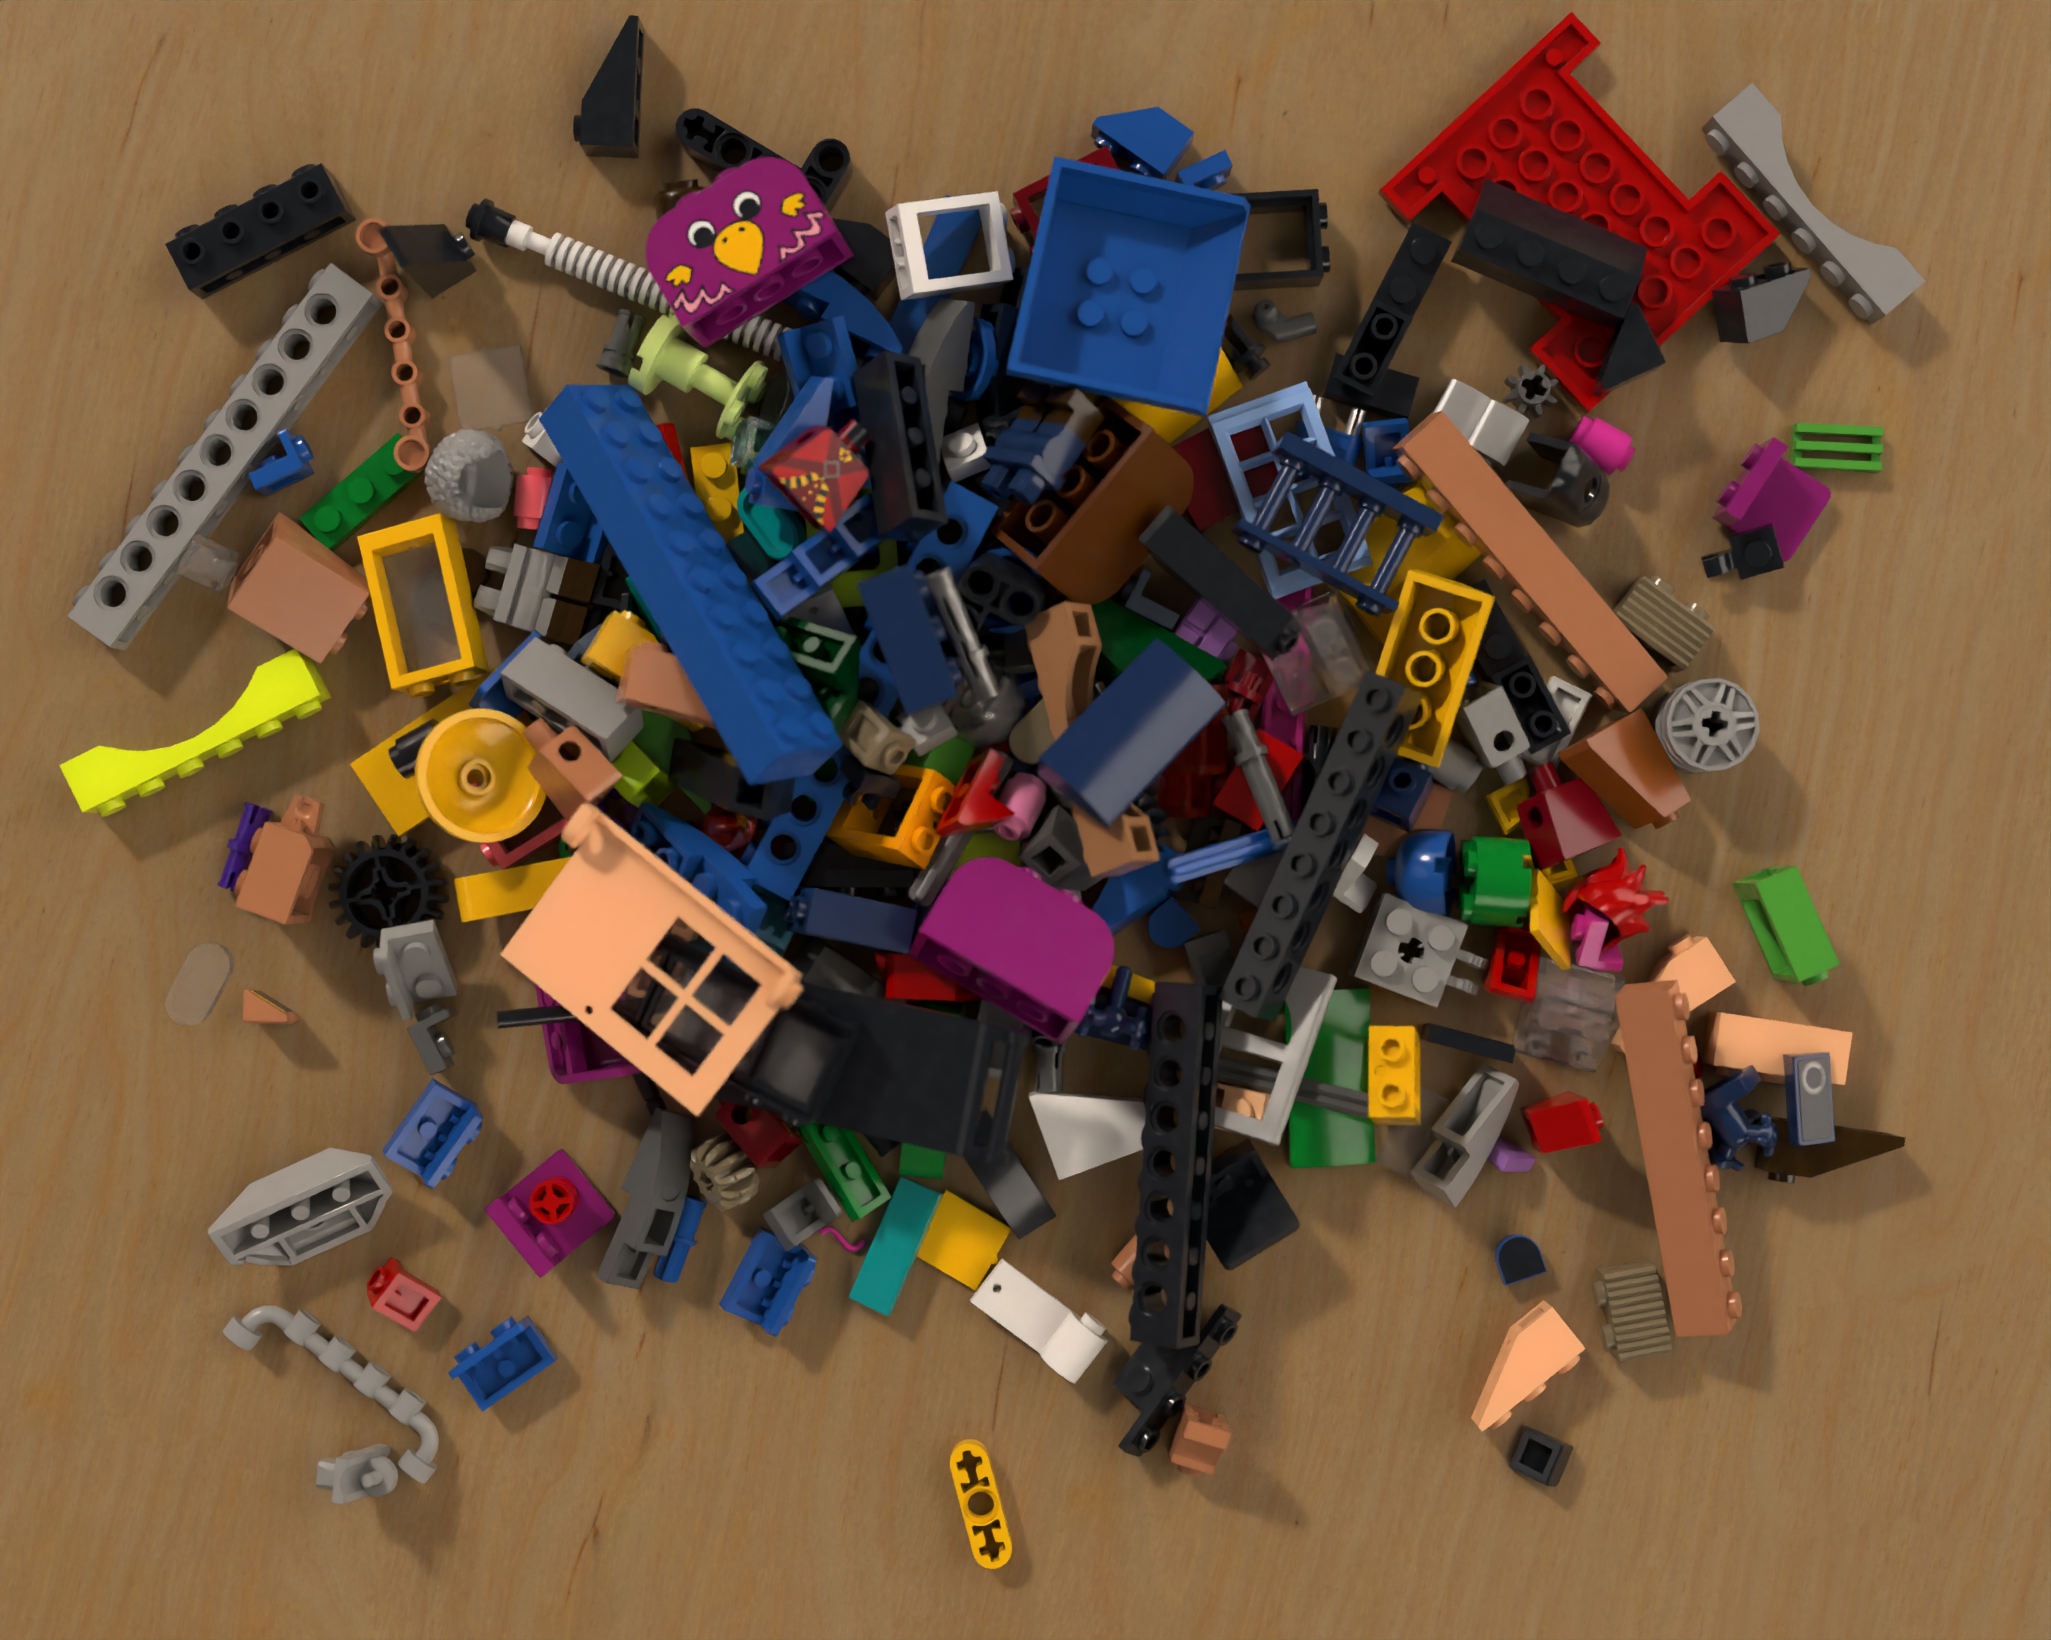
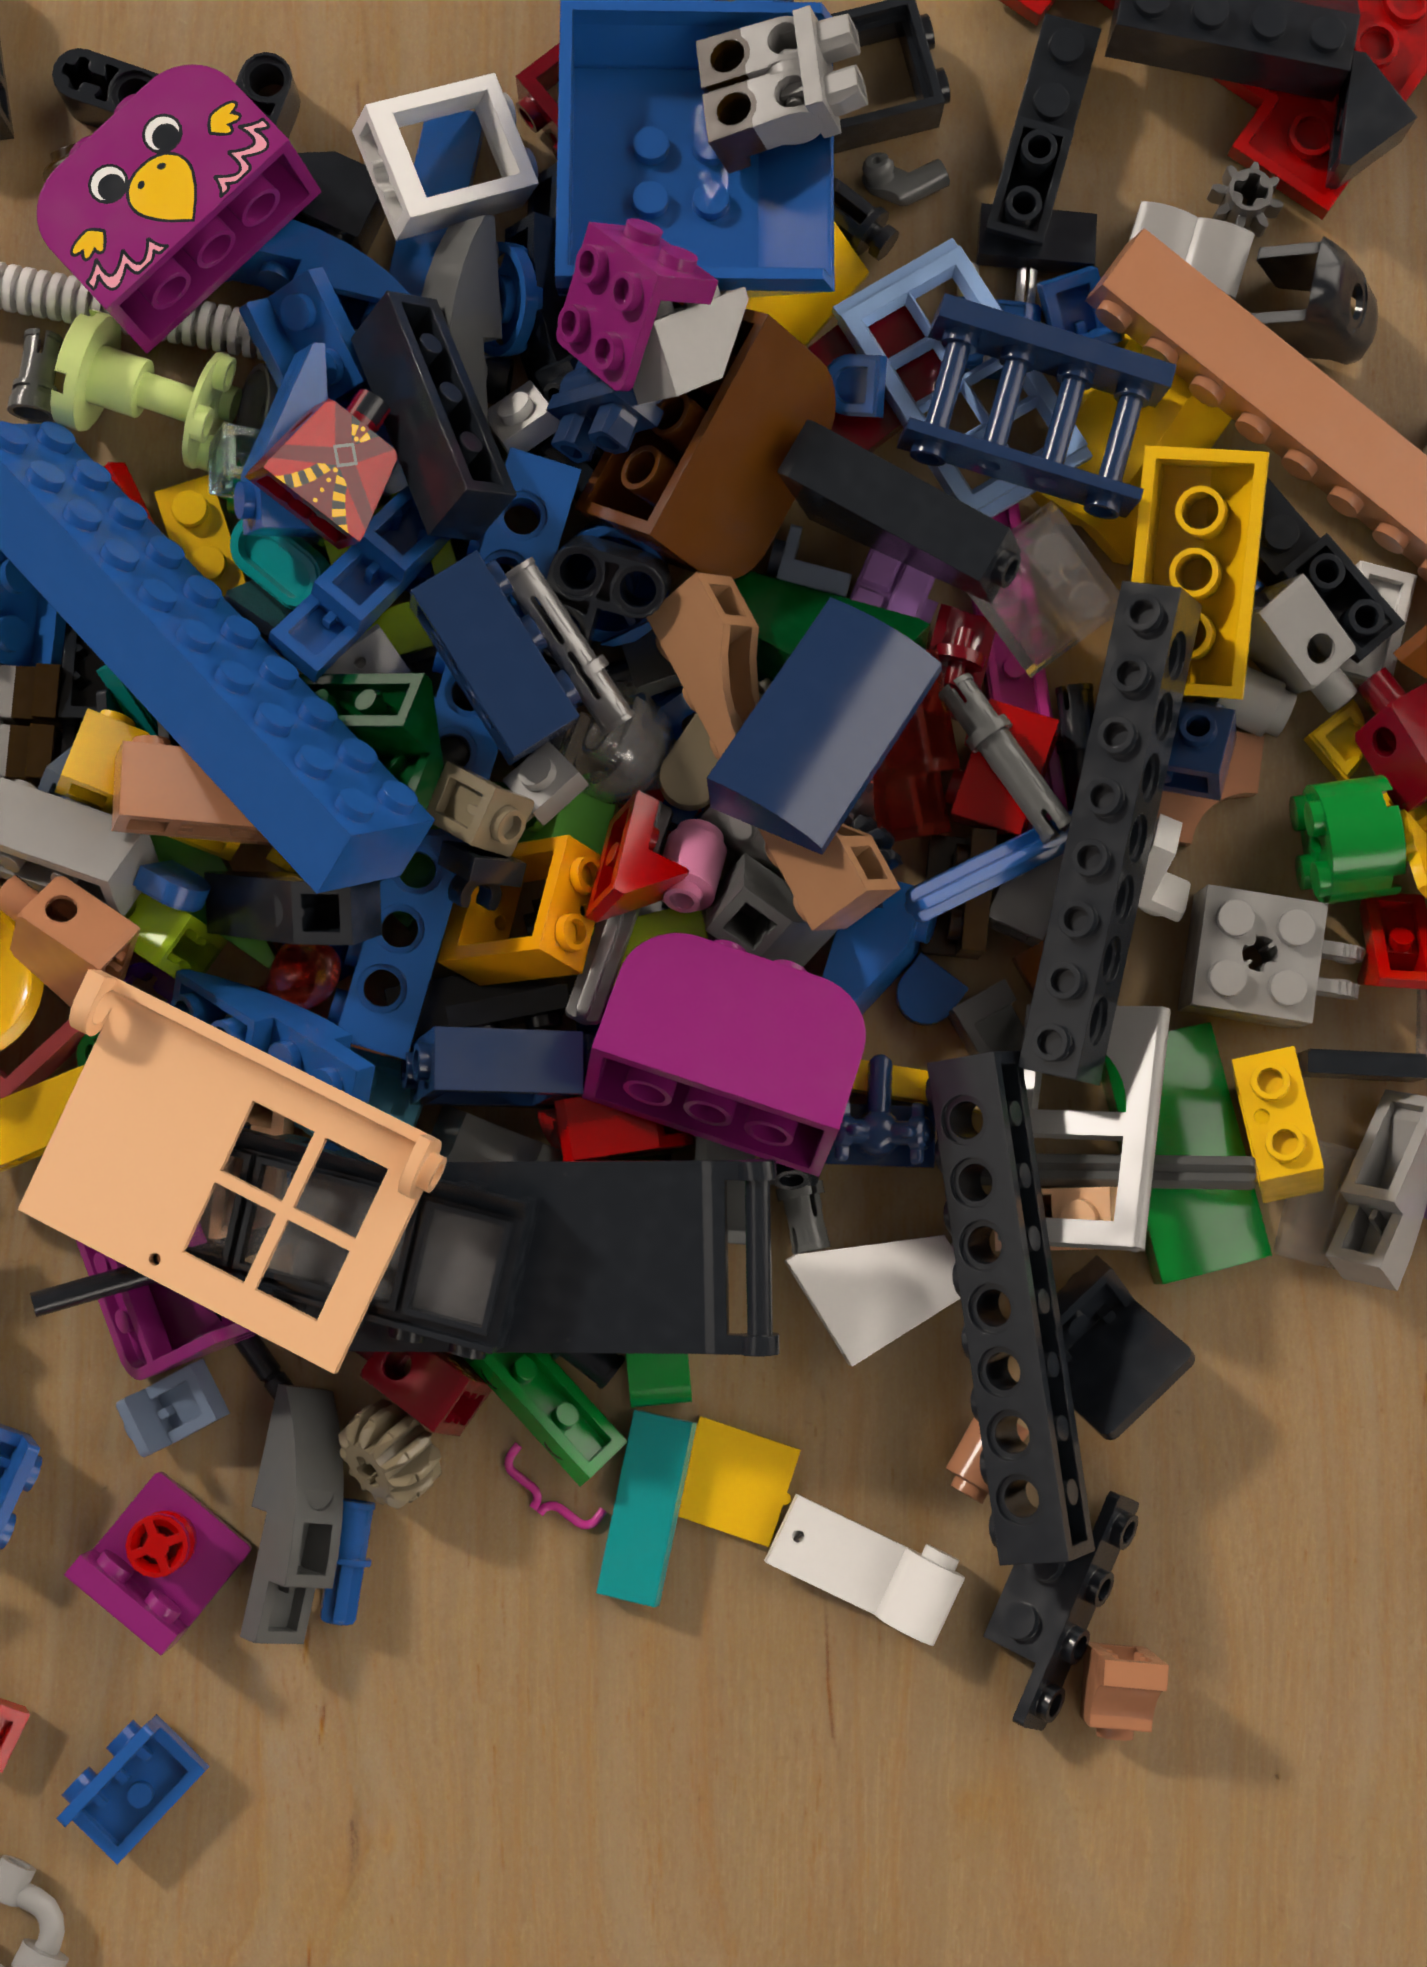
camera: 25 degrees left, 5 degrees down
(579, 1108) = (172, 1408): none -> sand blue bracket
(650, 745) = (173, 885): none -> blue tile
(769, 1282) = (482, 1593): blue bracket -> none
(803, 1213) = (510, 1488): dark grey bracket -> none
(1000, 1531) = (873, 1877): yellow beam -> none
(1011, 1186) = (786, 1391): black slope -> none
(1049, 392) = (617, 293): none -> magenta bracket
(1089, 438) = (689, 345): none -> light grey slope
(1198, 253) = (778, 84): none -> light grey hips
(1213, 479) = (859, 384): none -> blue tile
(1425, 871) = (1251, 845): blue cylinder -> none
(1603, 443) = (1365, 244): dark pink brick -> none

